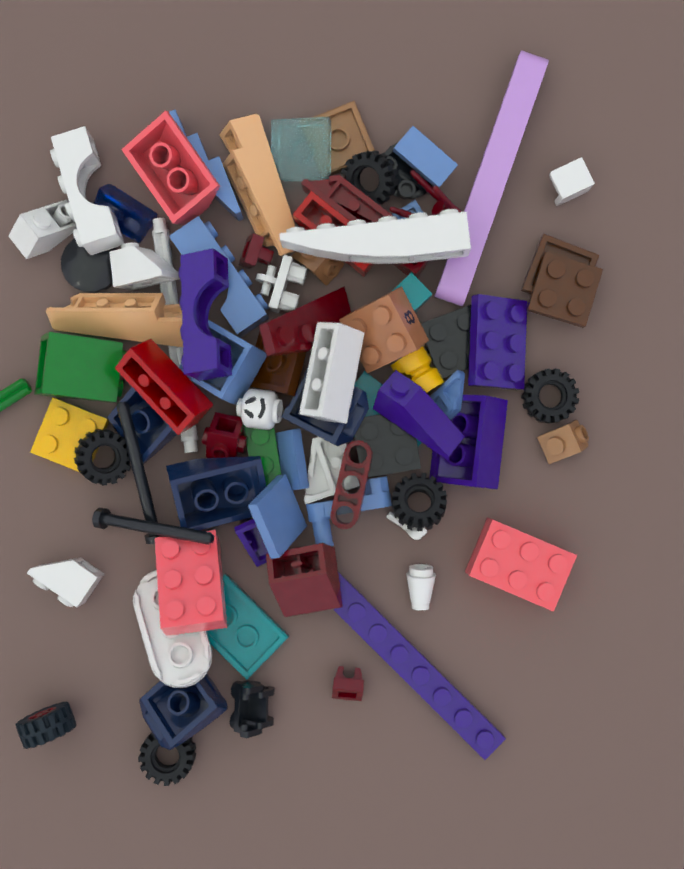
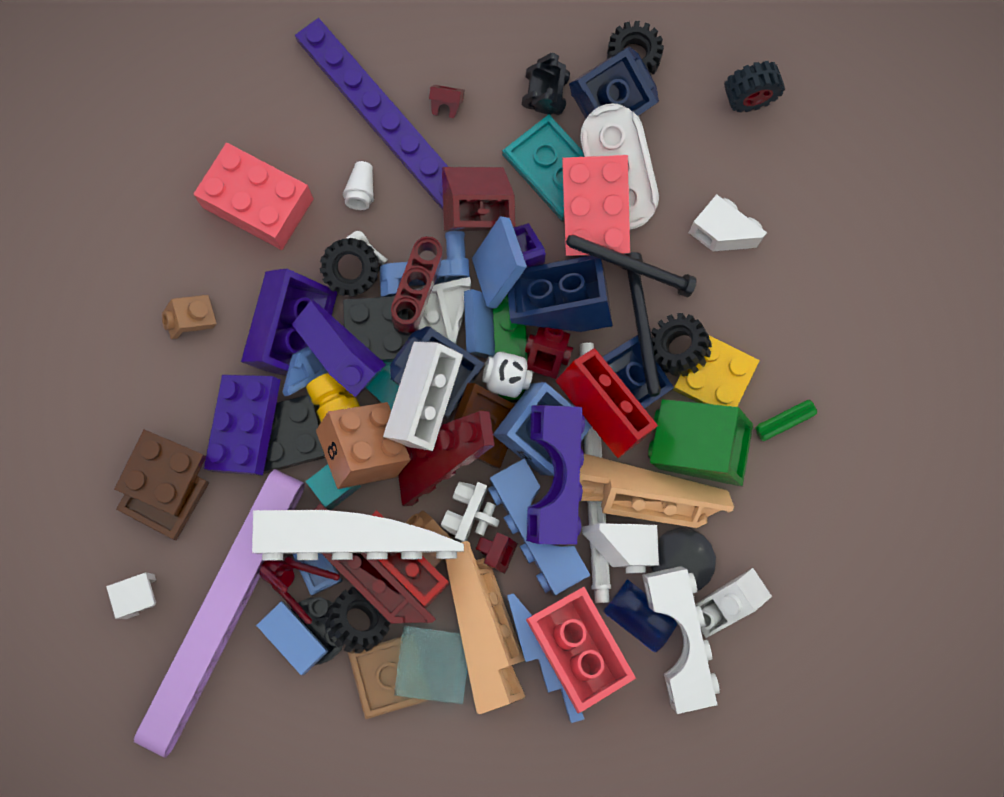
camera: 175 degrees left, 10 degrees down
(566, 388) = (182, 351): black tyre -> none

